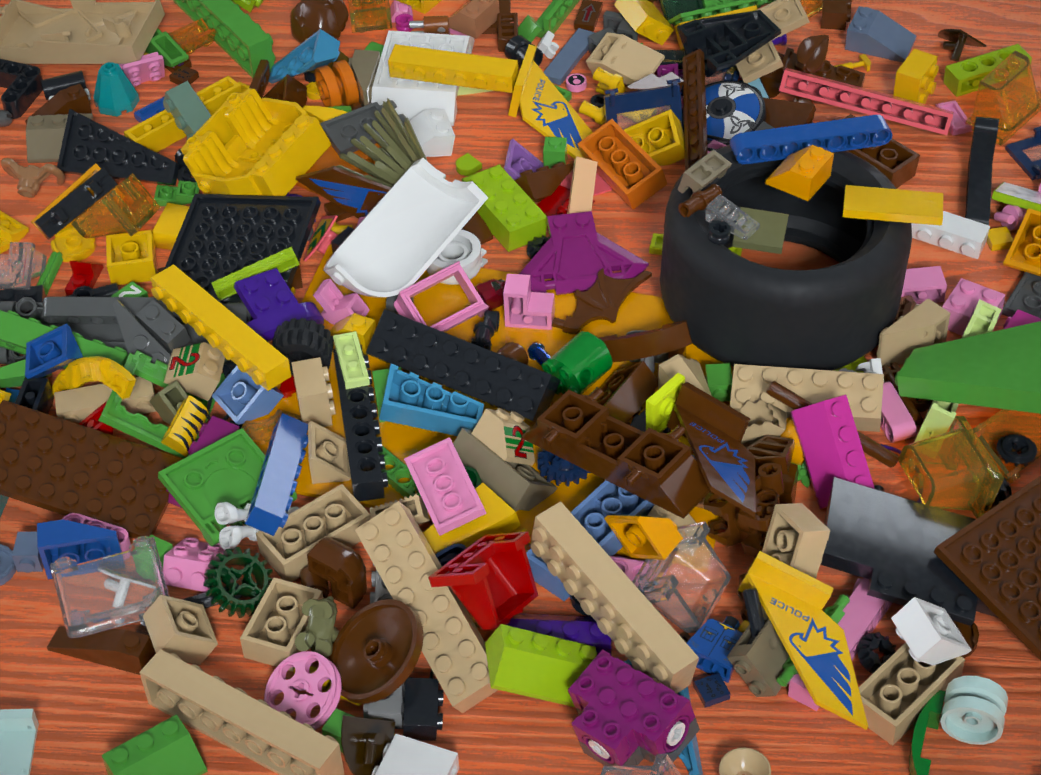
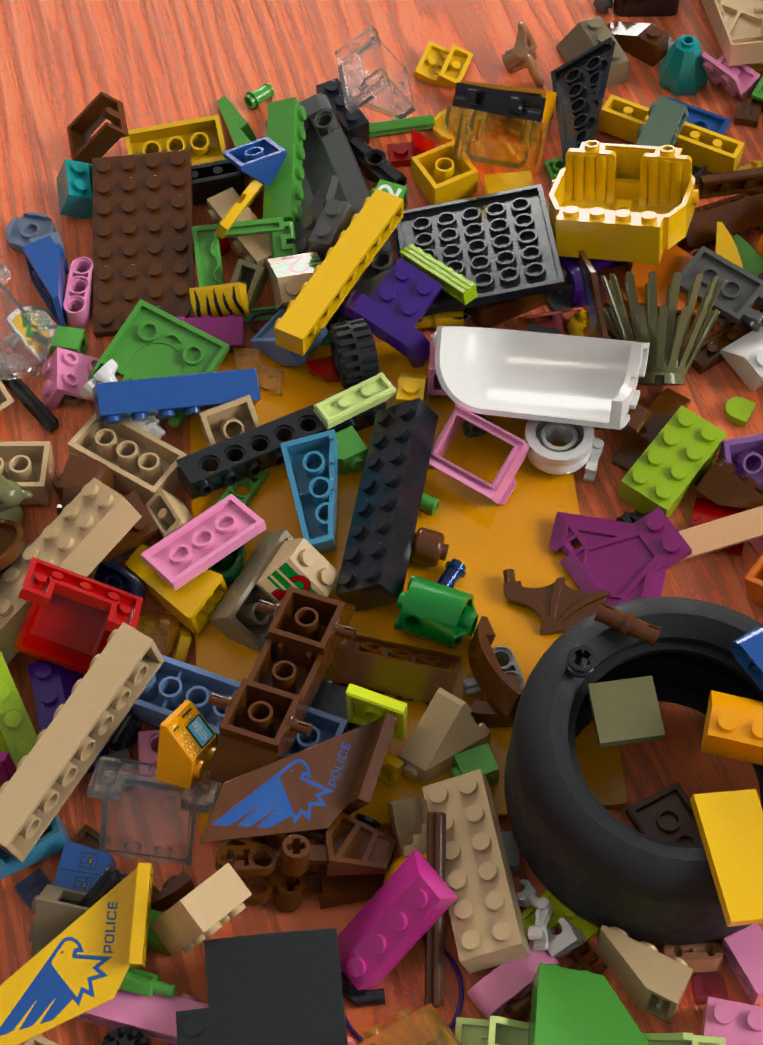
camera: 70 degrees right, 10 degrees up
(53, 85) = (672, 23): black pin -> none
(229, 576) = (46, 407): dark green gear -> none
(313, 391) = (299, 382): tan brick -> none
(485, 330) = (468, 510): black connector -> none
(491, 293) = (528, 499): dark red rock -> none
(525, 307) = (514, 531): bright pink brick -> none
(704, 172) = (674, 613): dark tan hinge -> none
(724, 210) = (620, 649): clear slope -> none

